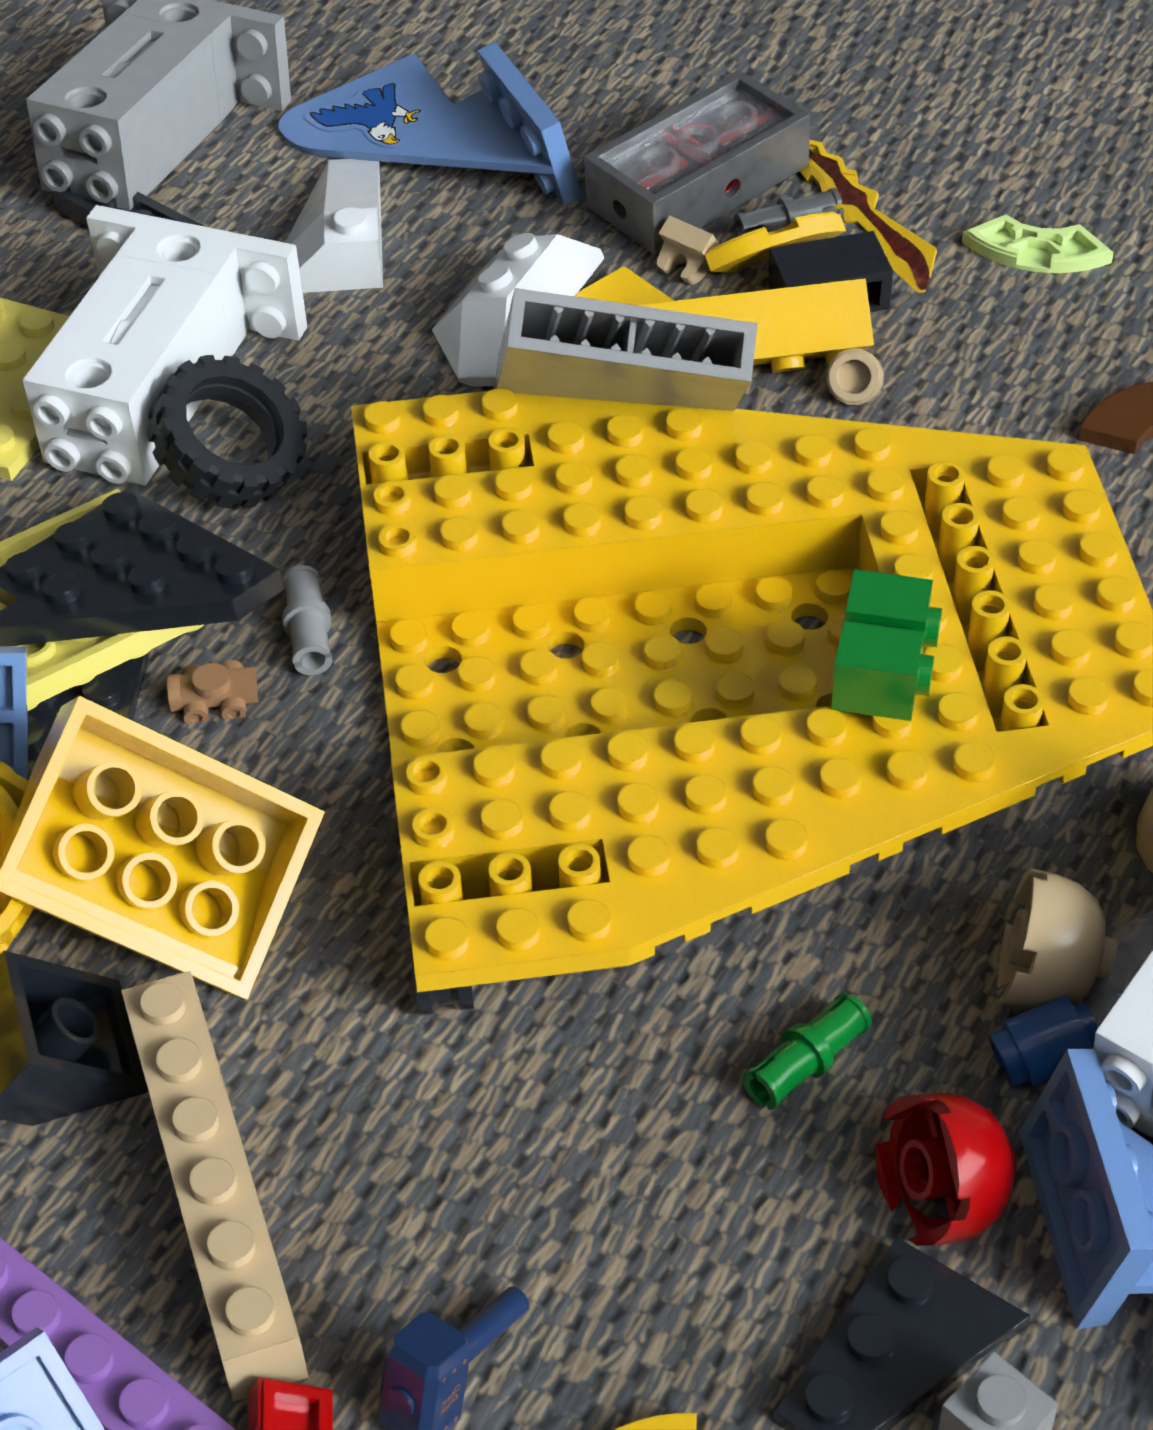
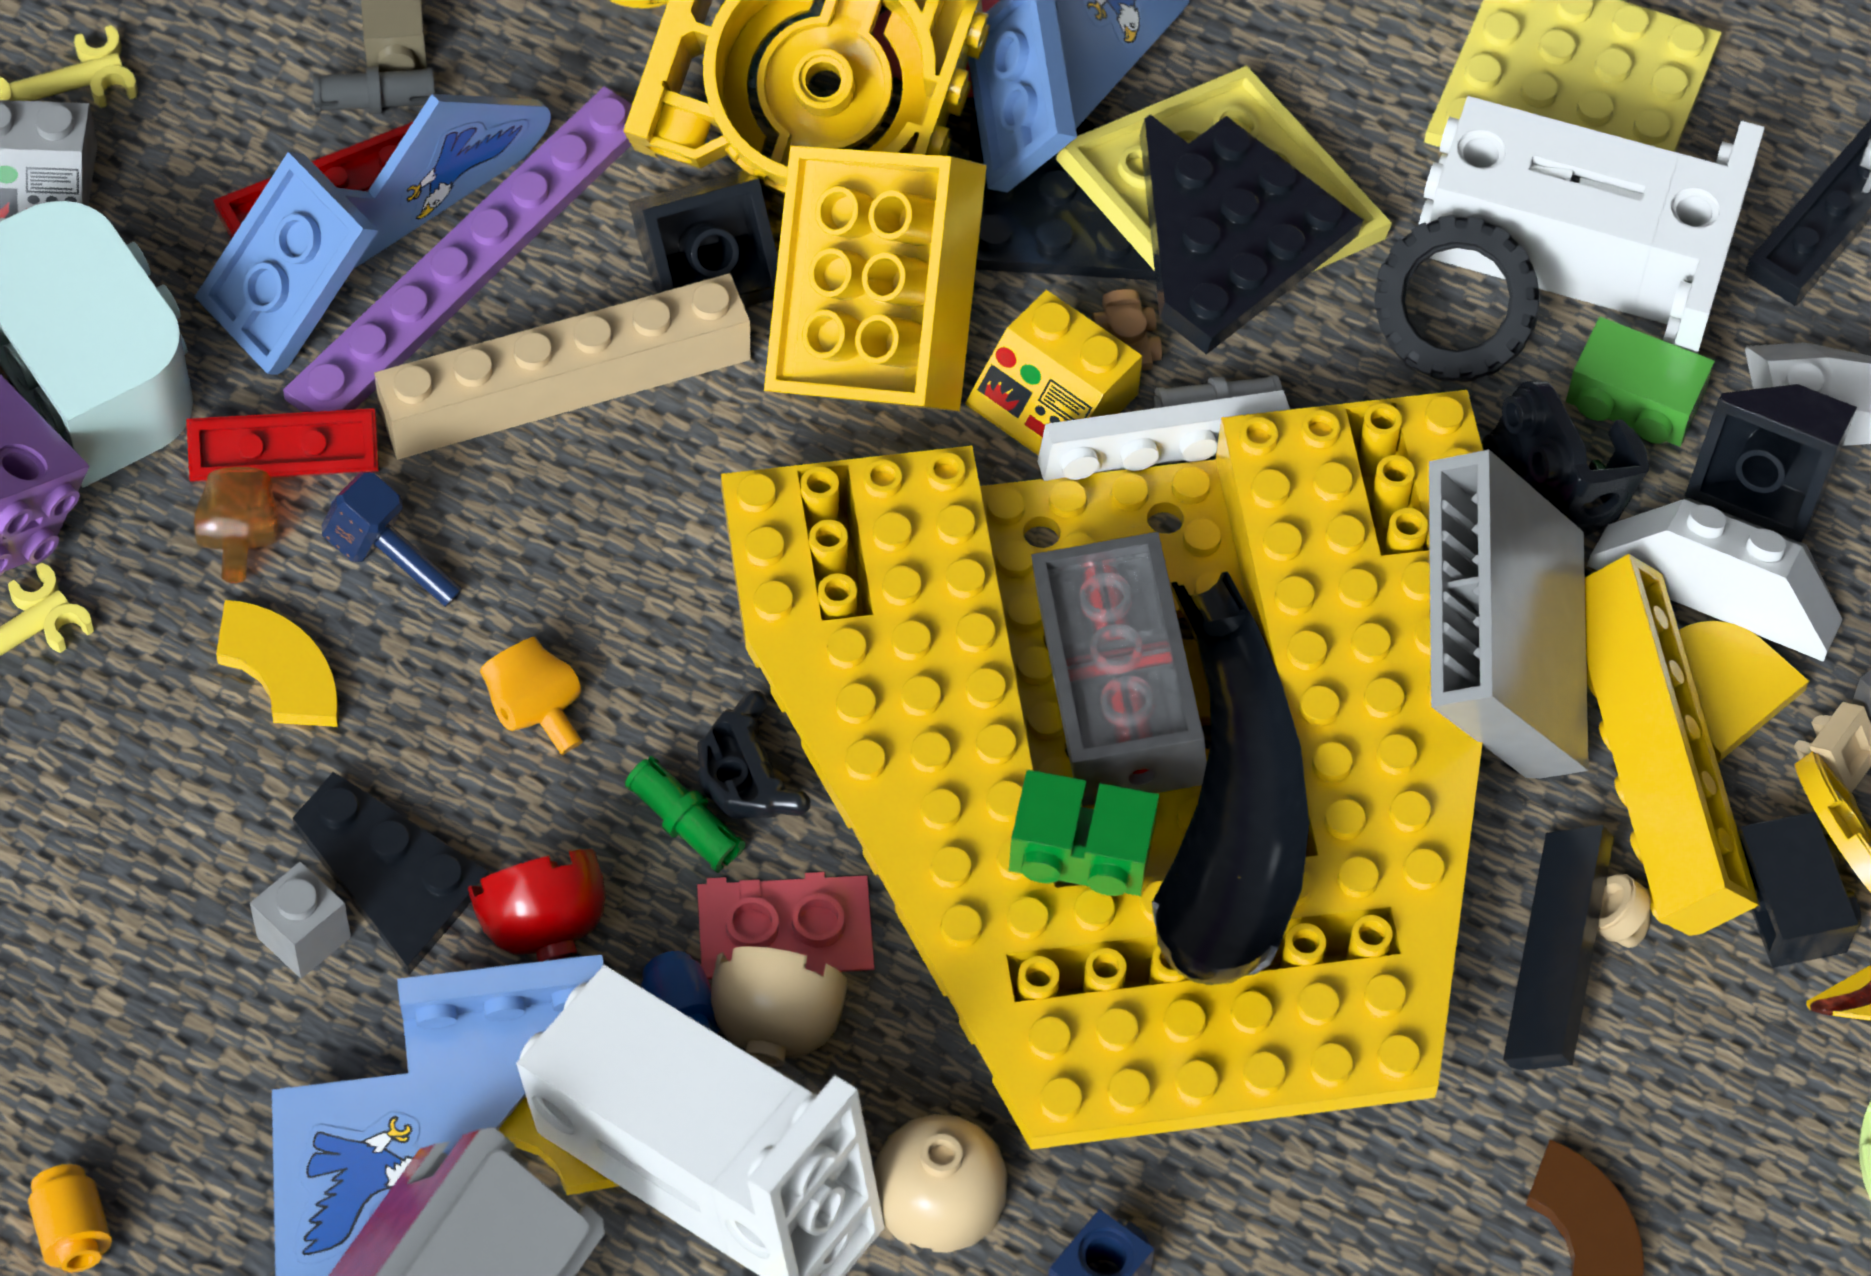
camera: 85 degrees right, 10 degrees up
(278, 726) = (1054, 370): none -> yellow slope
(319, 340) = (1639, 381): none -> bright green brick
(364, 663) = (1144, 436): none -> white plate
(415, 359) = (1549, 454): none -> black piece
(430, 239) = (1771, 456): none -> black slope
(654, 1203) = (533, 688): none -> light orange piece
(665, 645) = (1120, 666): none -> brick
(756, 994) = (738, 769): none -> black piece
(894, 403) = (1558, 949): none -> black tile
(907, 525) = (1248, 809): none -> black animal
(926, 972) = (807, 916): none -> coral piece

